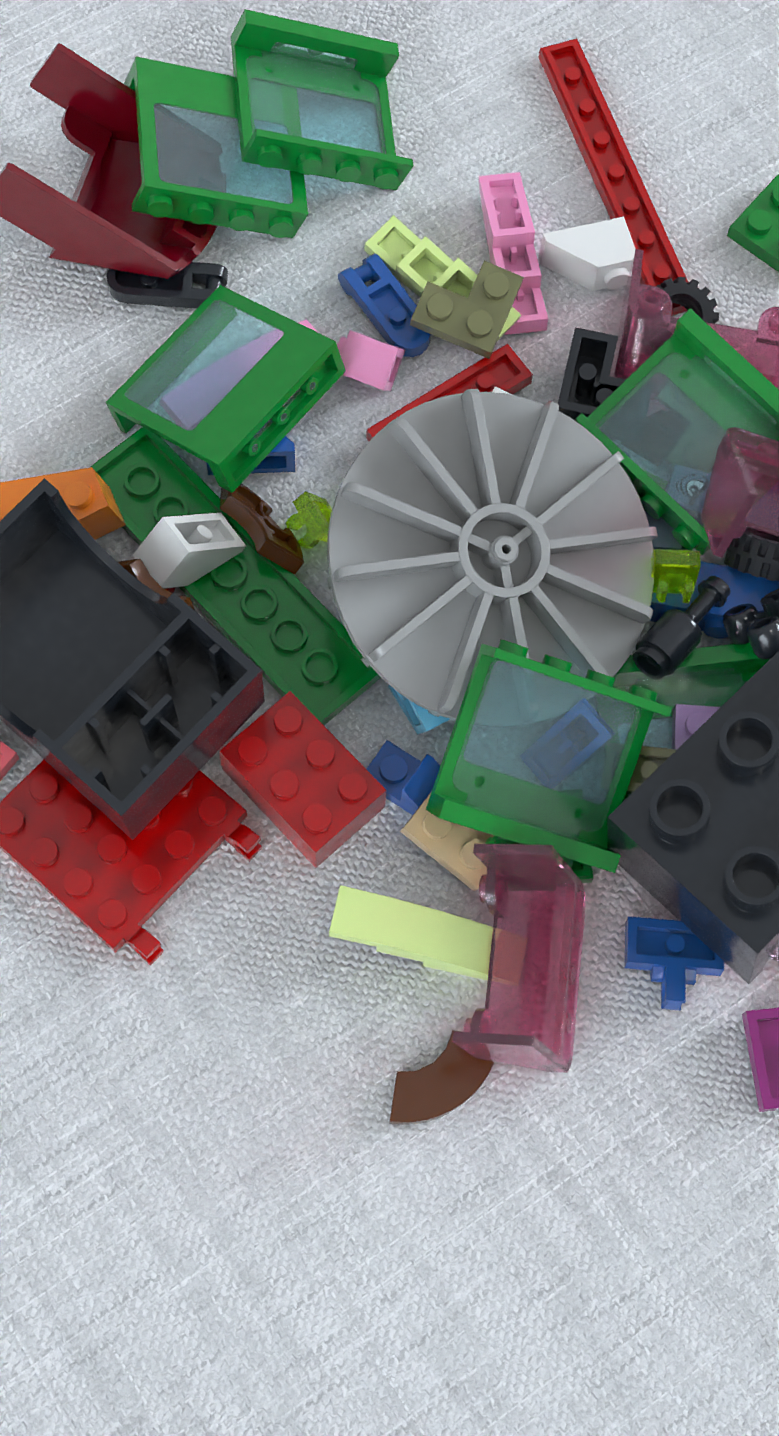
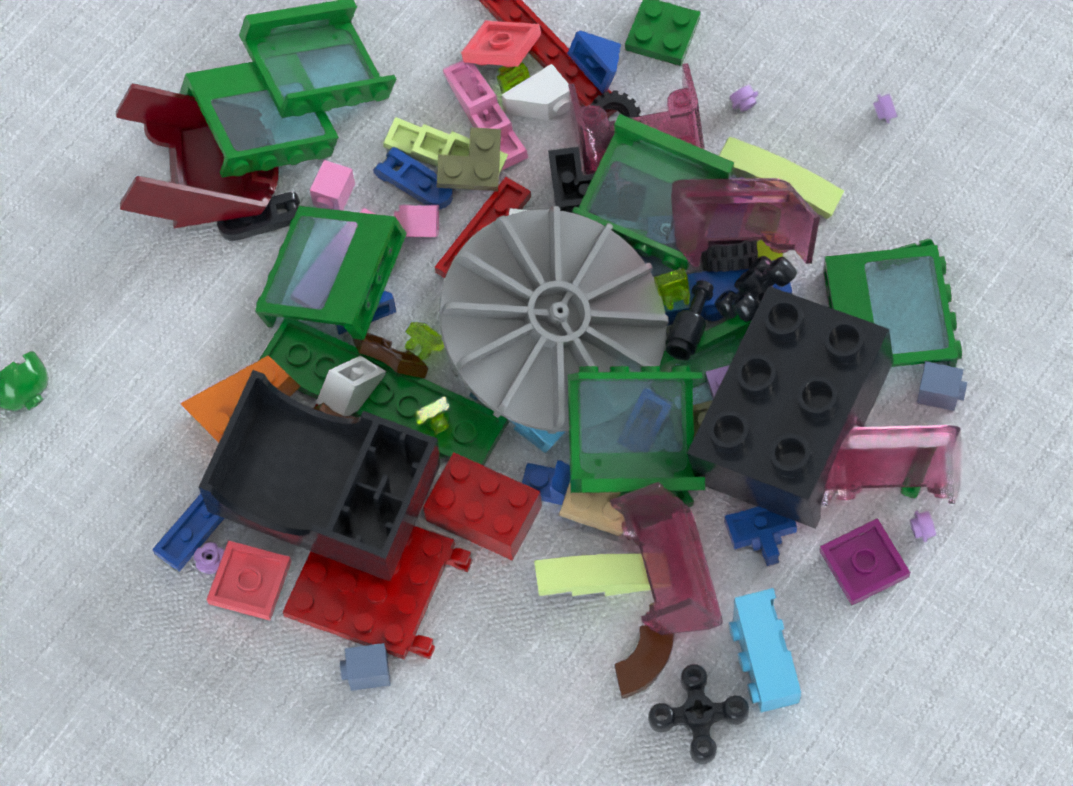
camera: 10 degrees left, 5 degrees down
(56, 946) = (366, 667): none -> sand blue brick
(276, 276) = (332, 186): none -> bright pink brick
(284, 626) = (434, 414): none -> clear neon green tile
(481, 1215) = (711, 713): none -> black gear
(565, 214) = (511, 76): none -> clear neon green tile
(567, 168) = (501, 43): none -> coral plate
(612, 1138) = (764, 651): none -> medium azure wedge
(684, 229) = (596, 58): none -> blue slope

